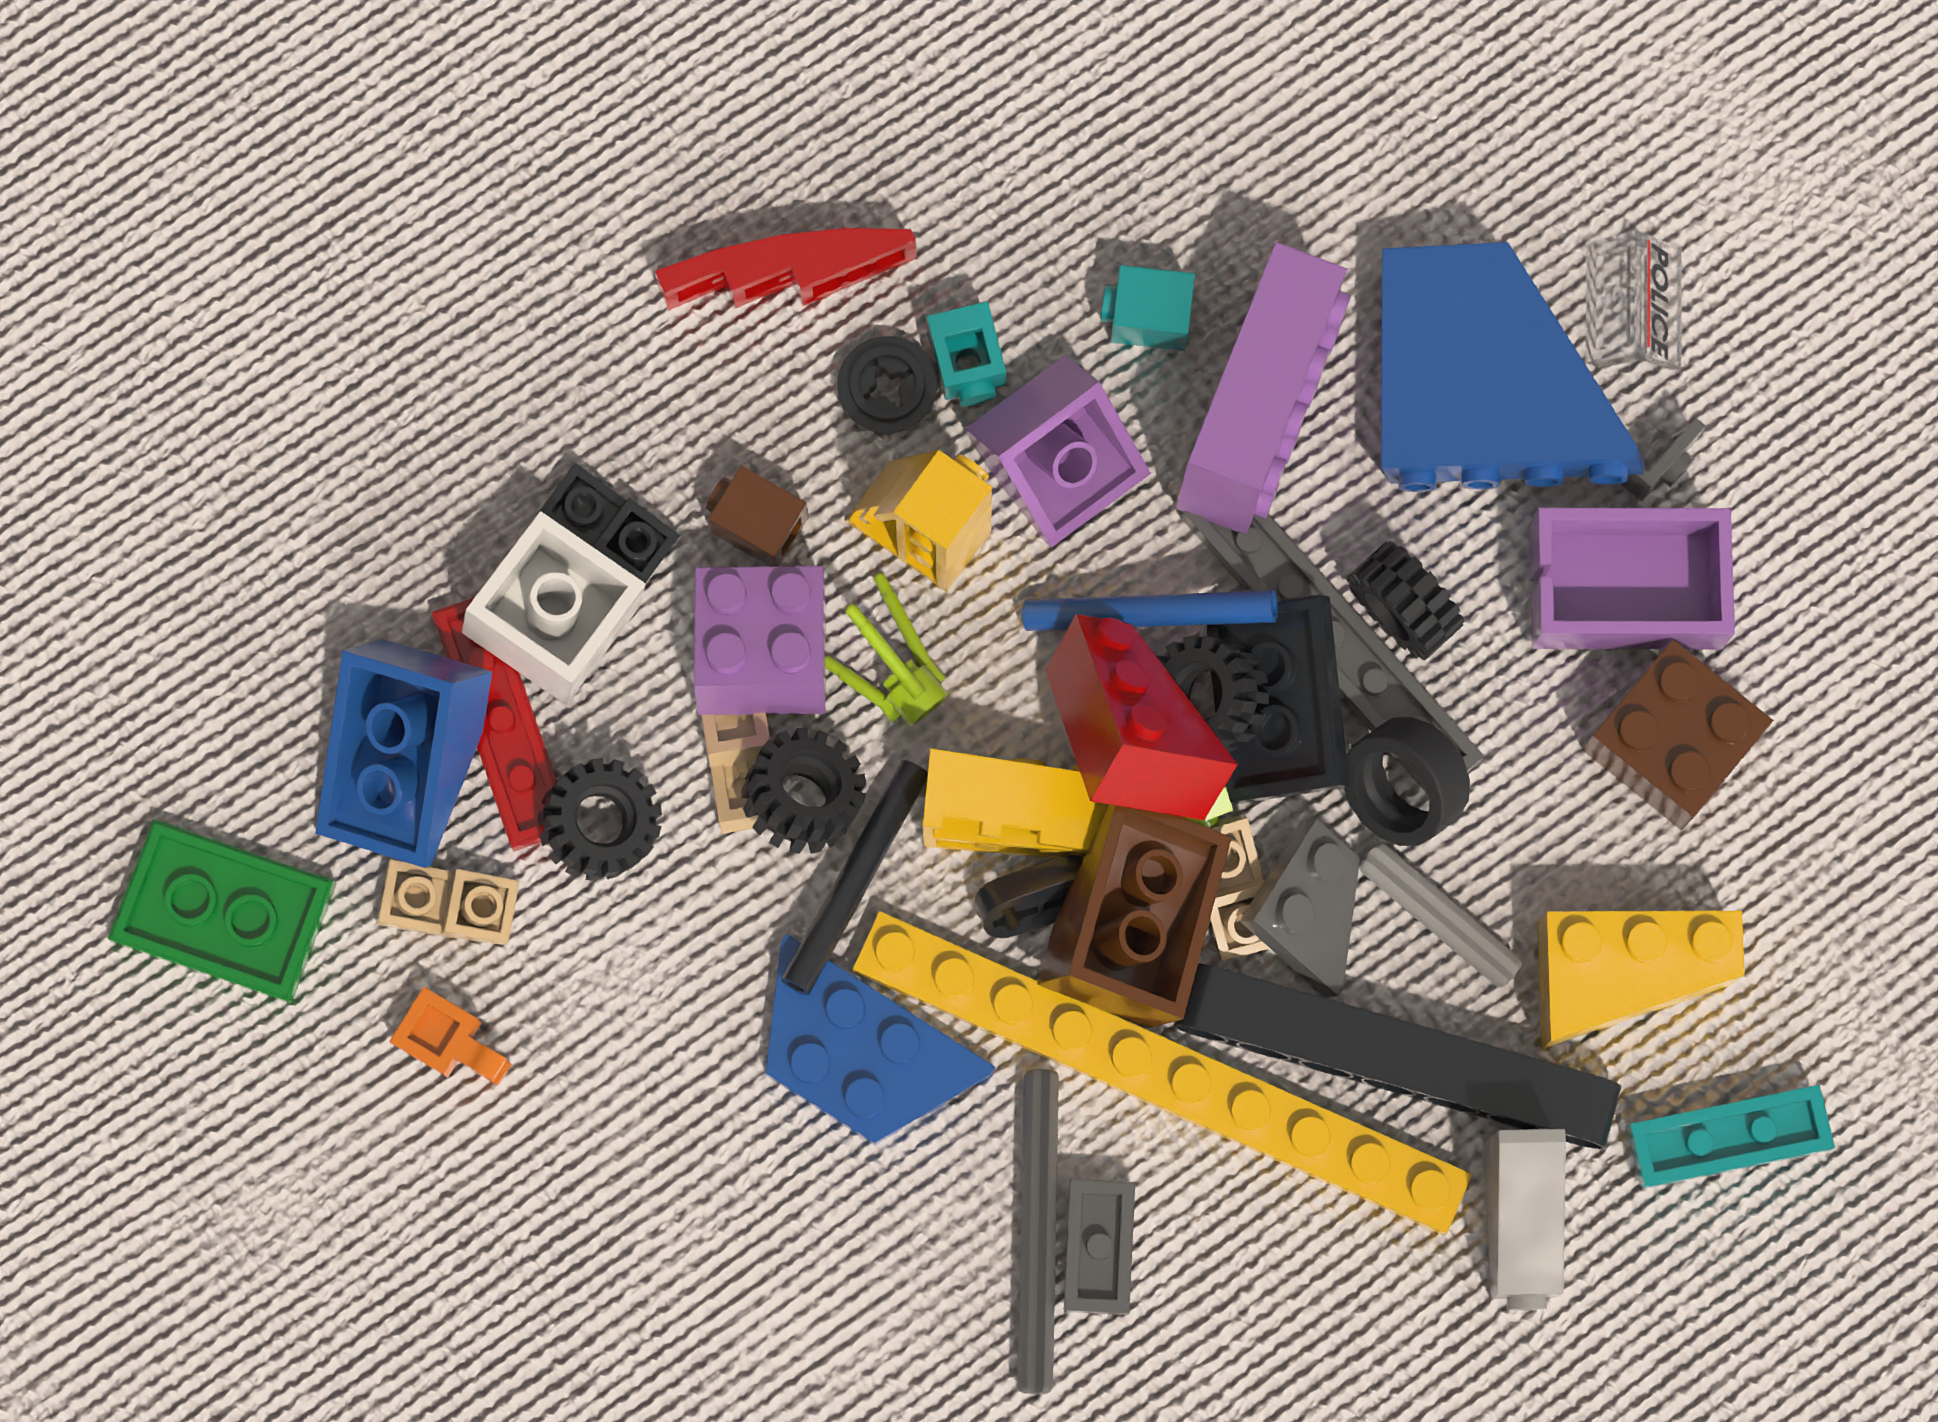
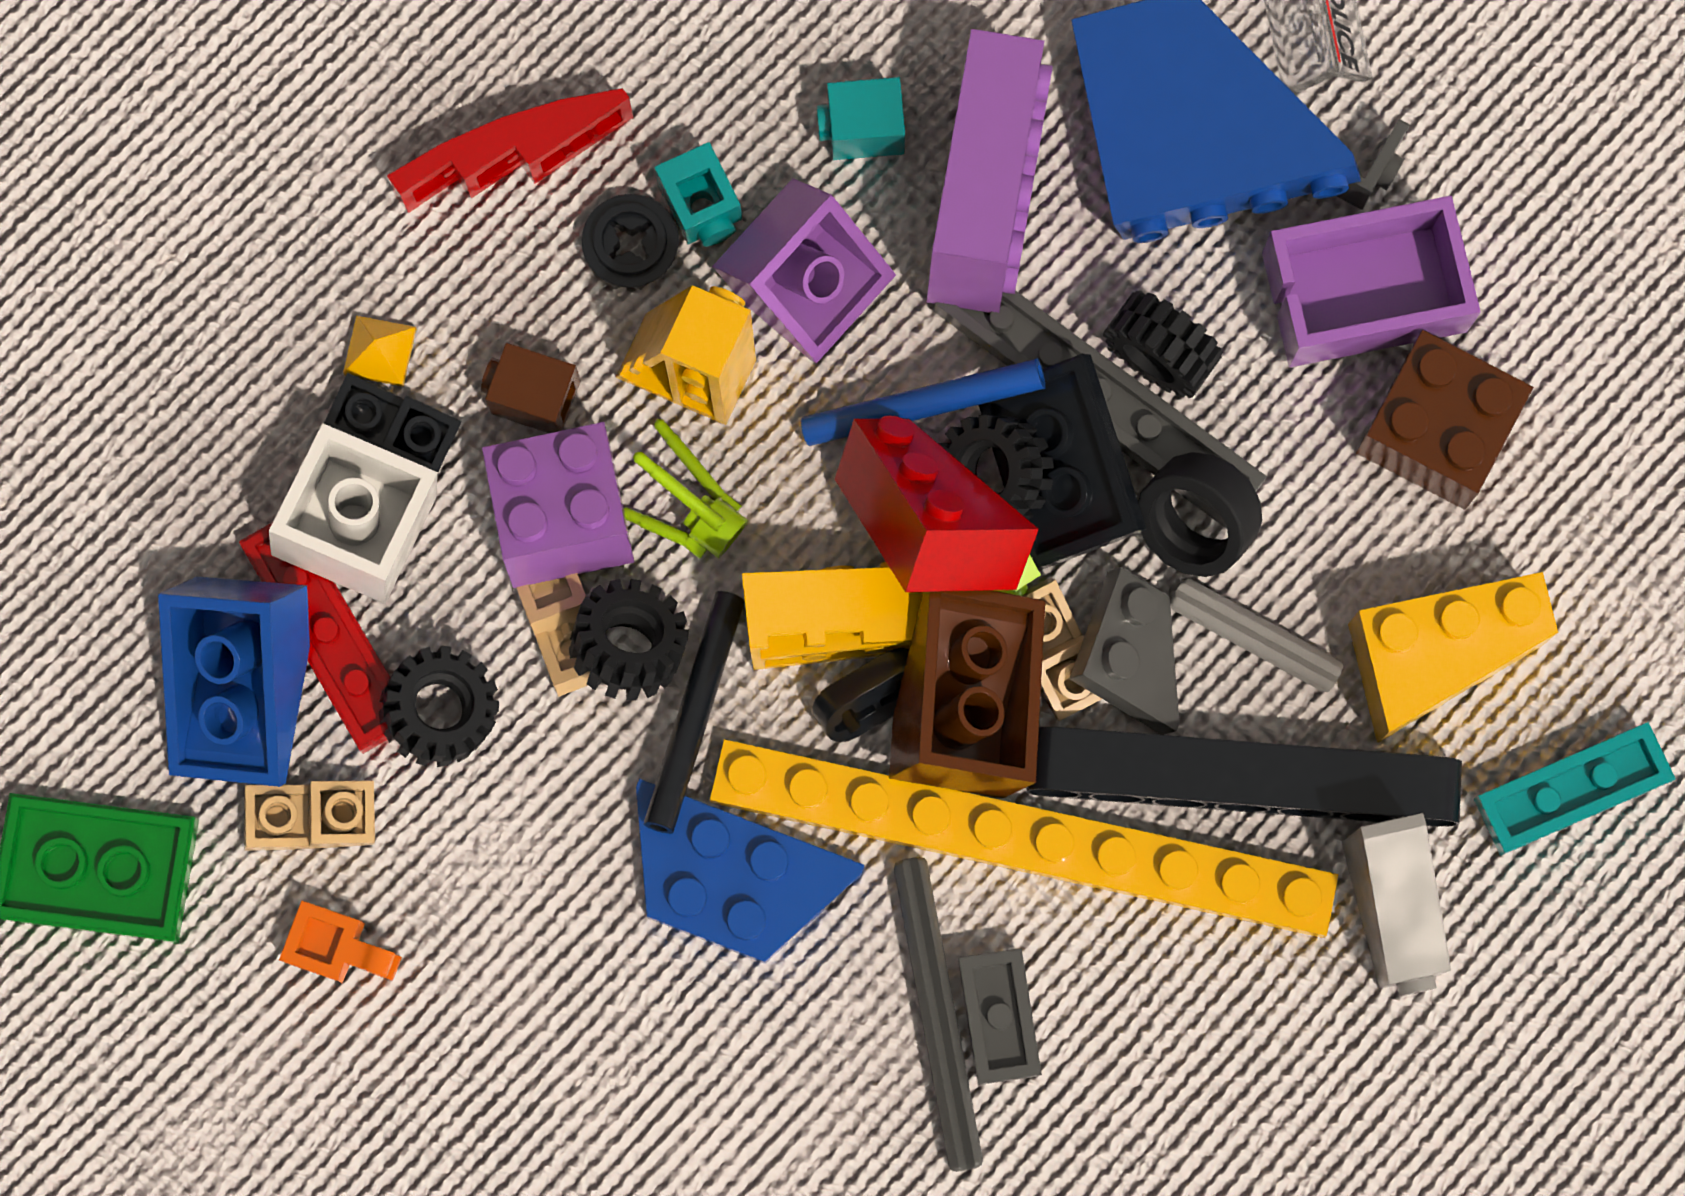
camera: 10 degrees left, 0 degrees up
(611, 446) = (380, 351): none -> yellow slope

